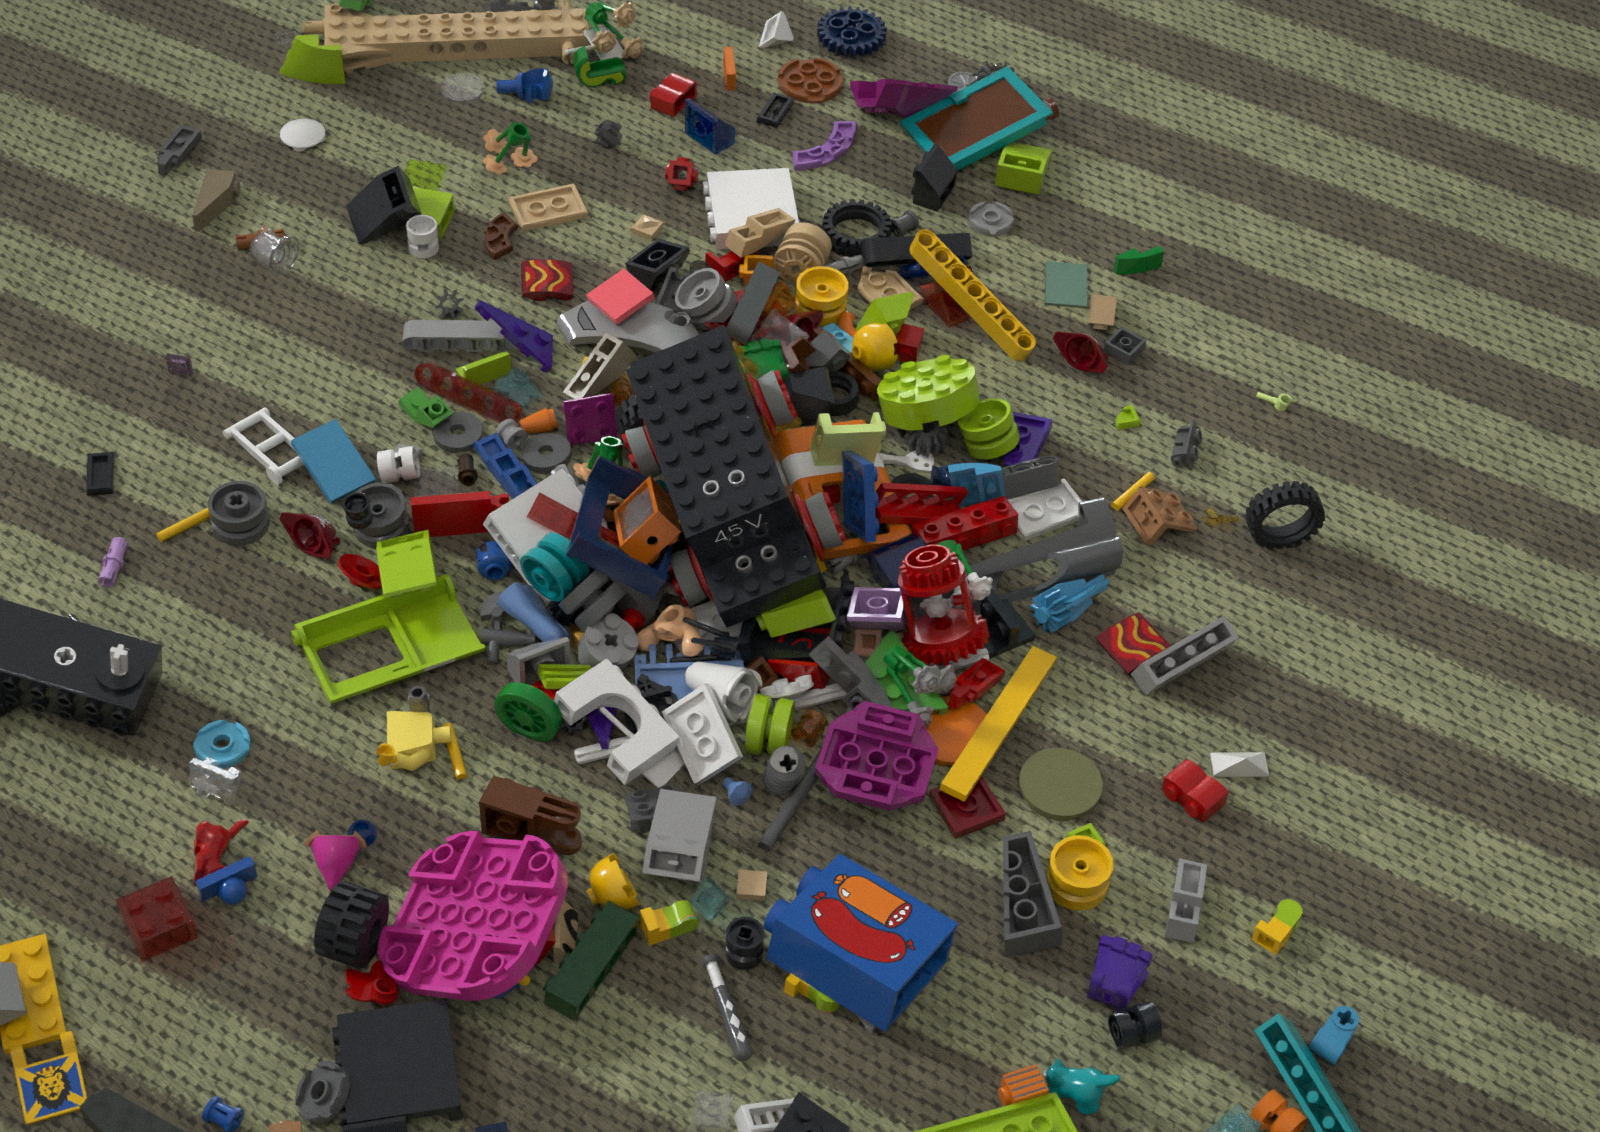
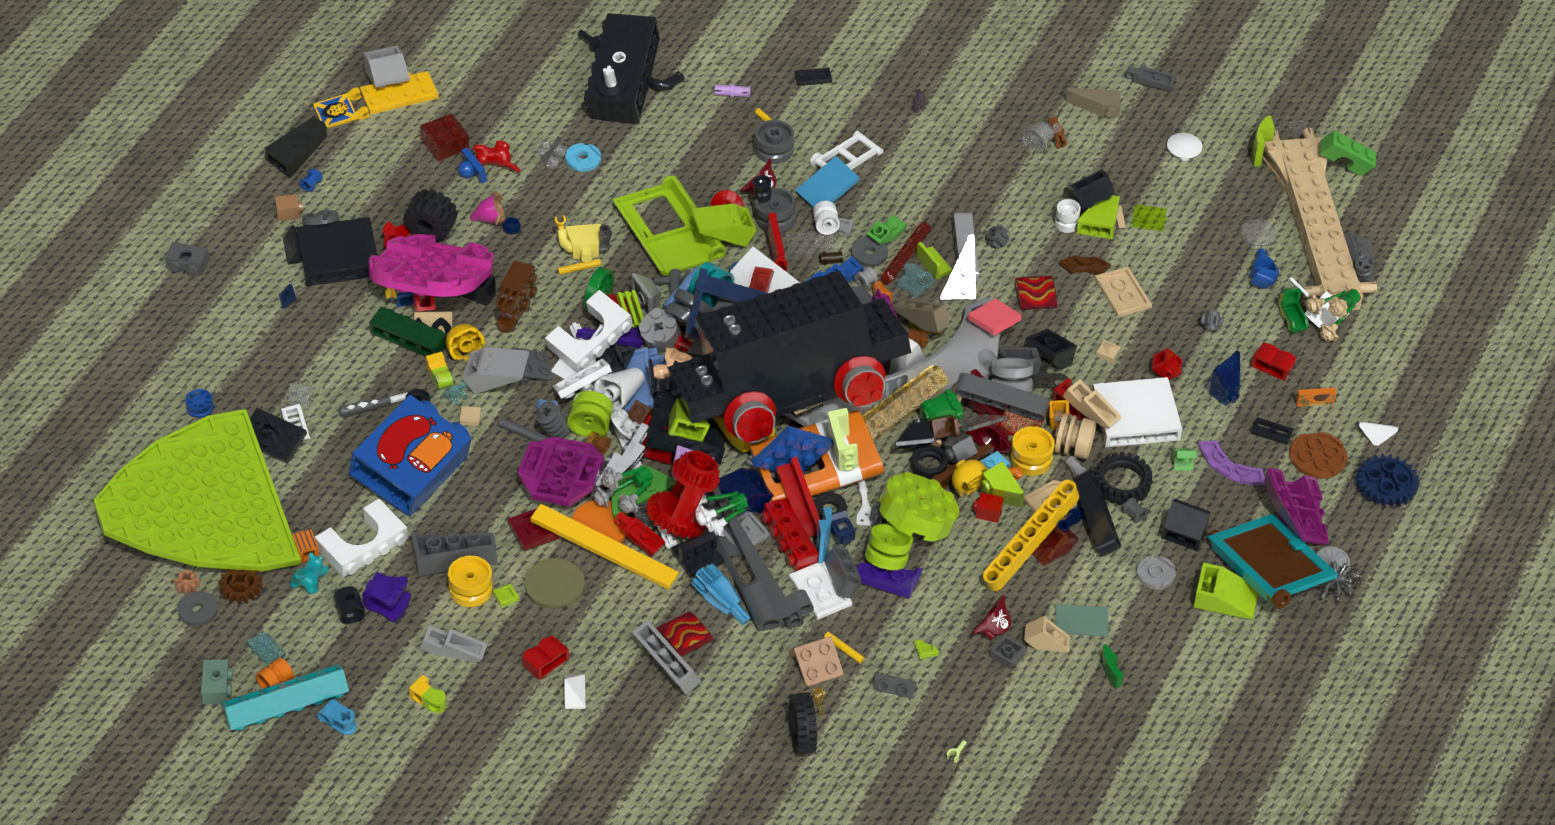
camera: 90 degrees right, 0 degrees up
(517, 135) = (1180, 254): plant -> none
(821, 176) = (1183, 458): none -> bright green slope
(992, 979) = (348, 557): none -> white arch

